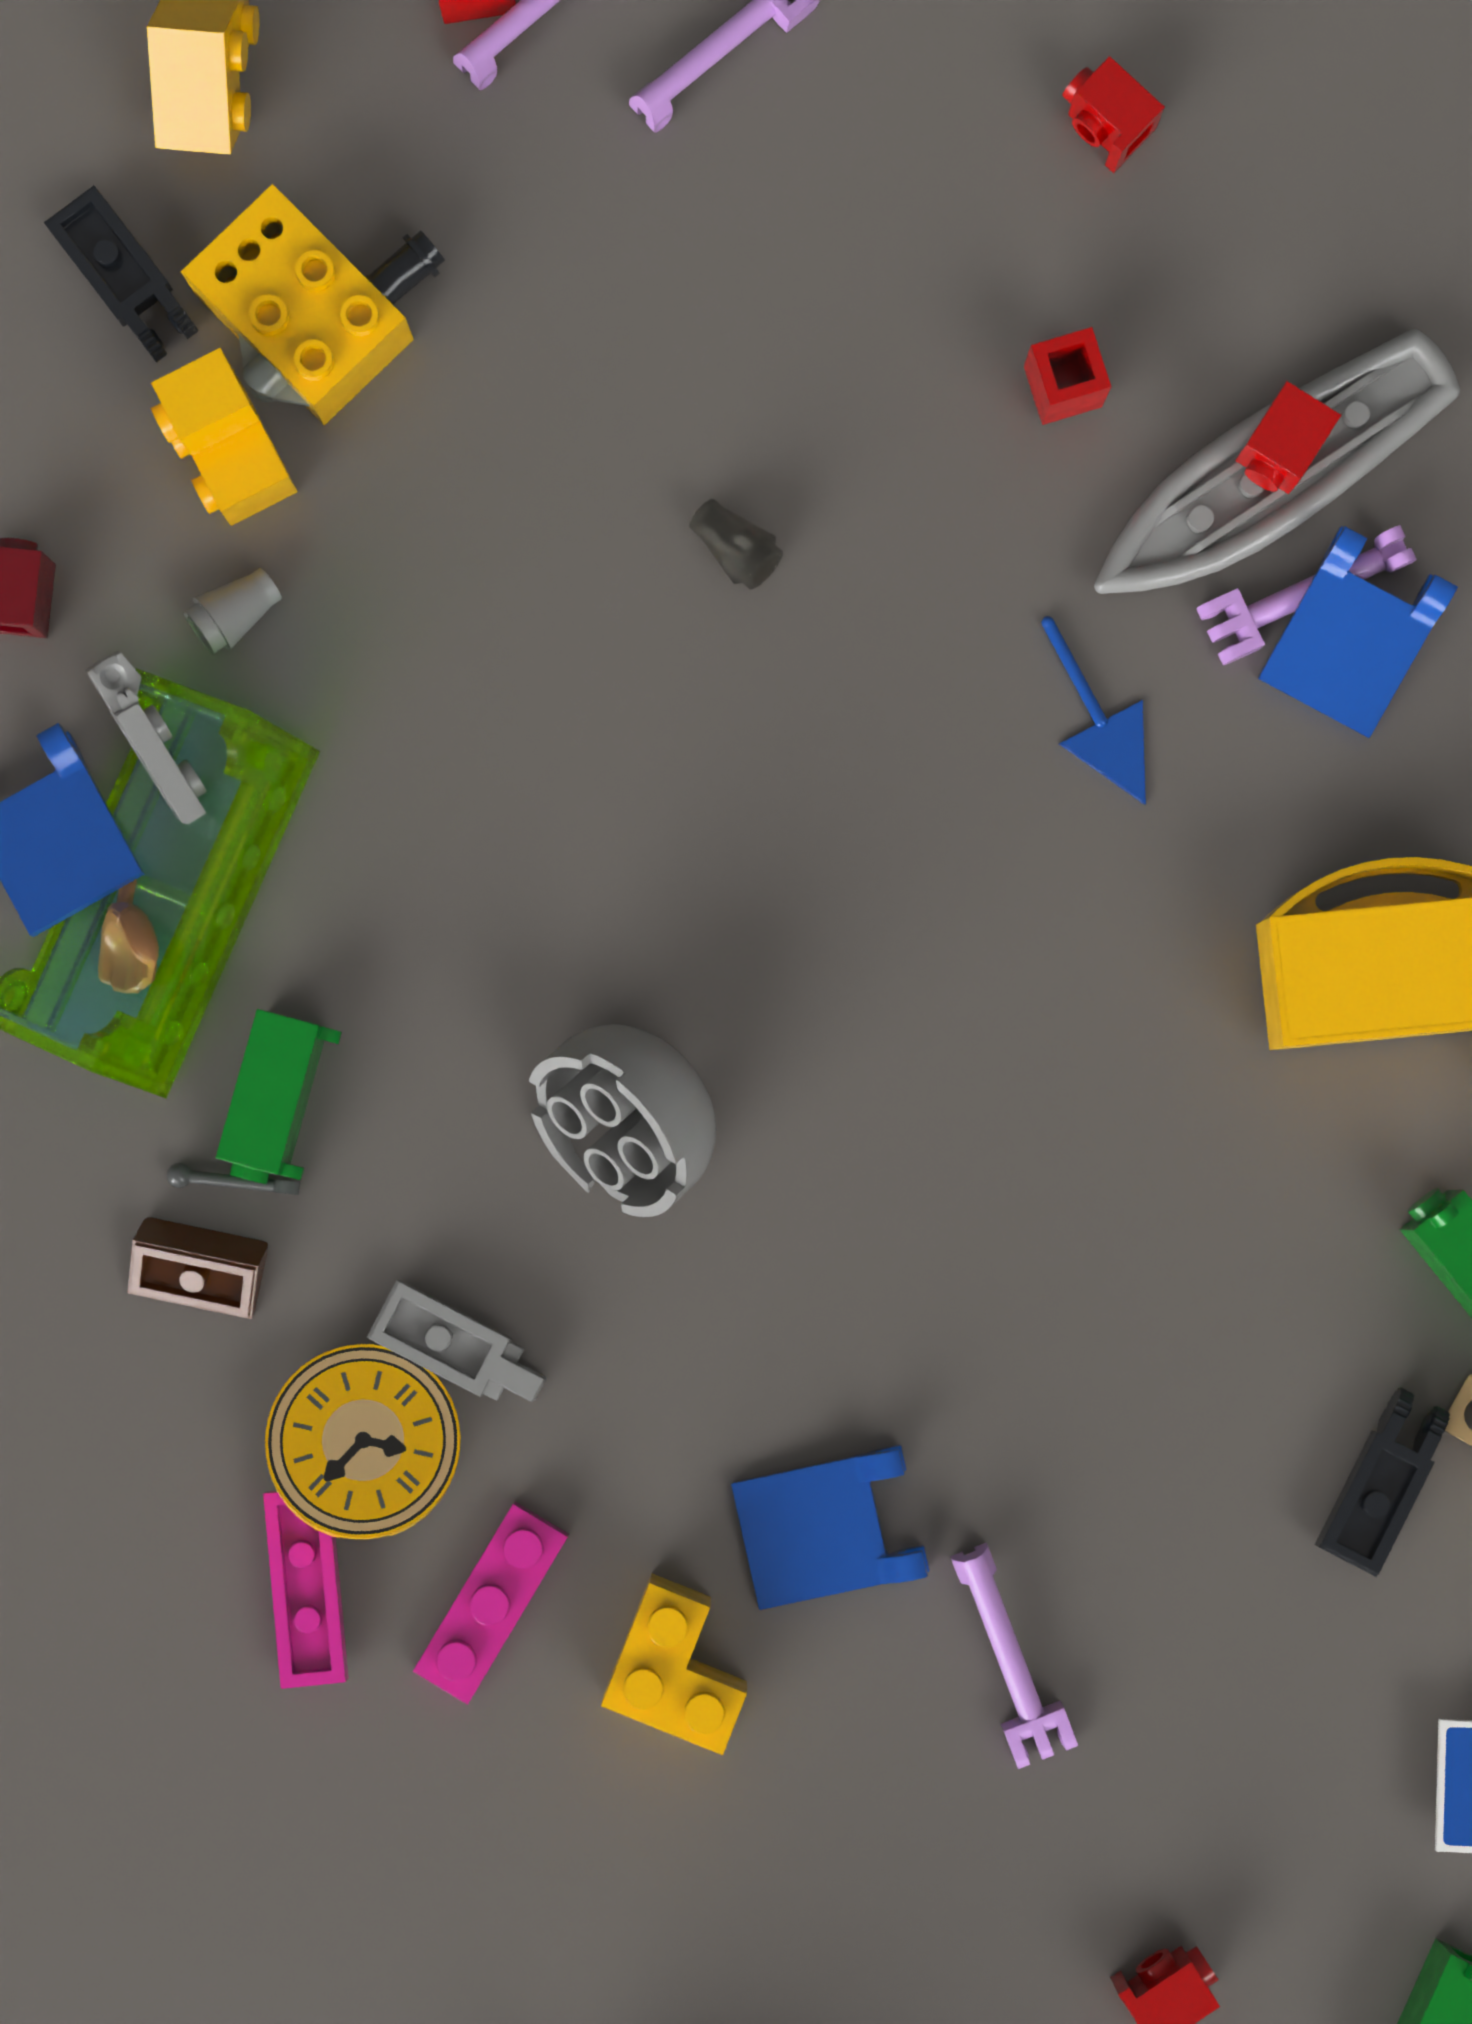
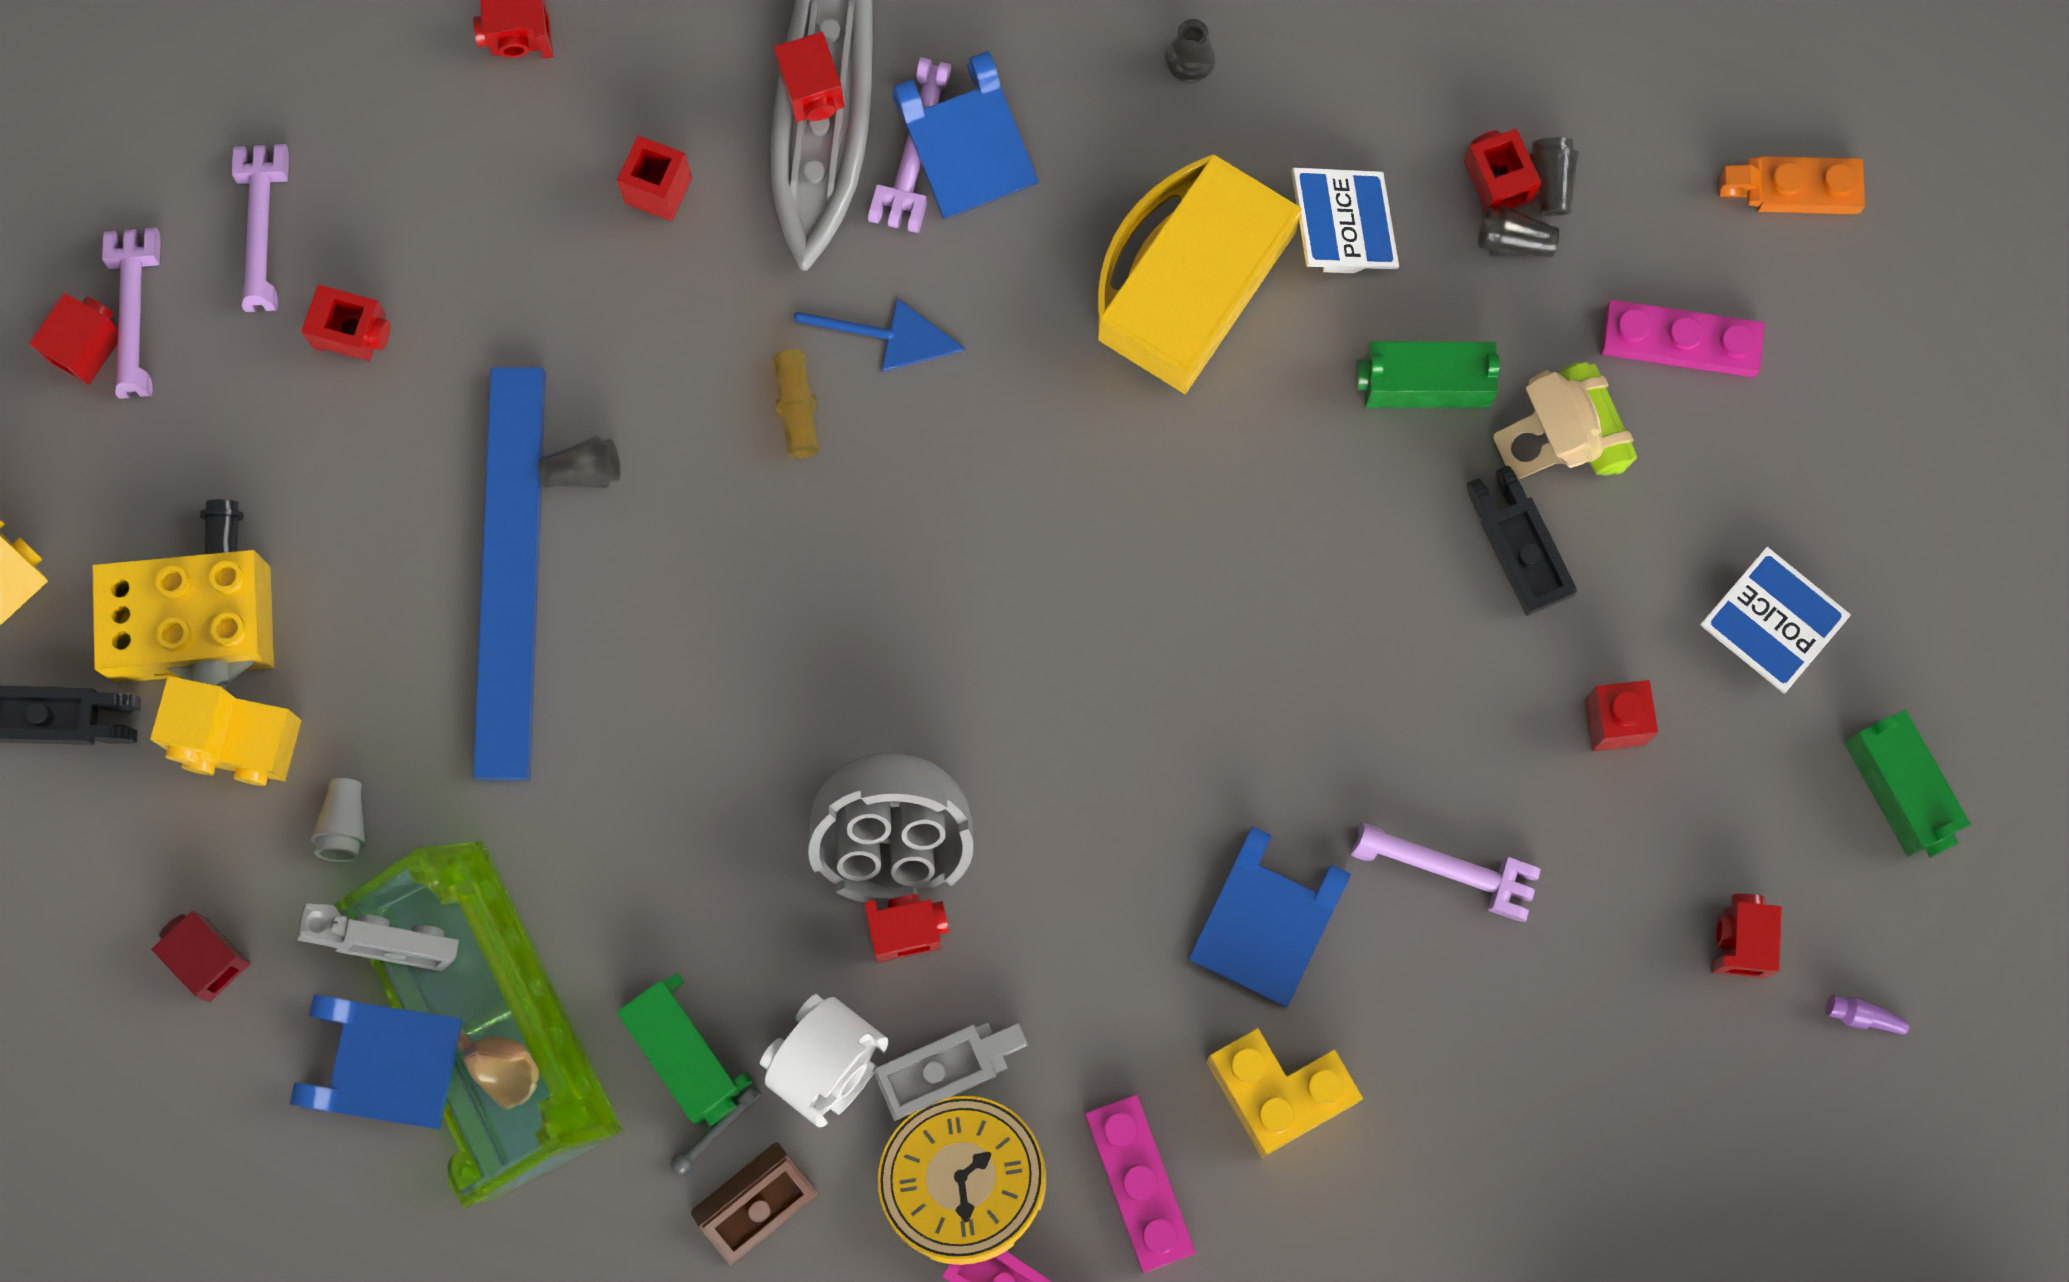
camera: 50 degrees left, 10 degrees down
(366, 1230) = (823, 1059): none -> white brick
(549, 1203) = (906, 927): none -> red brick
(585, 563) = (509, 575): none -> blue tile
(690, 190) = (335, 312): none -> red brick
(959, 692) = (796, 404): none -> clear yellow pin
(1286, 1712) = (1621, 715): none -> red brick

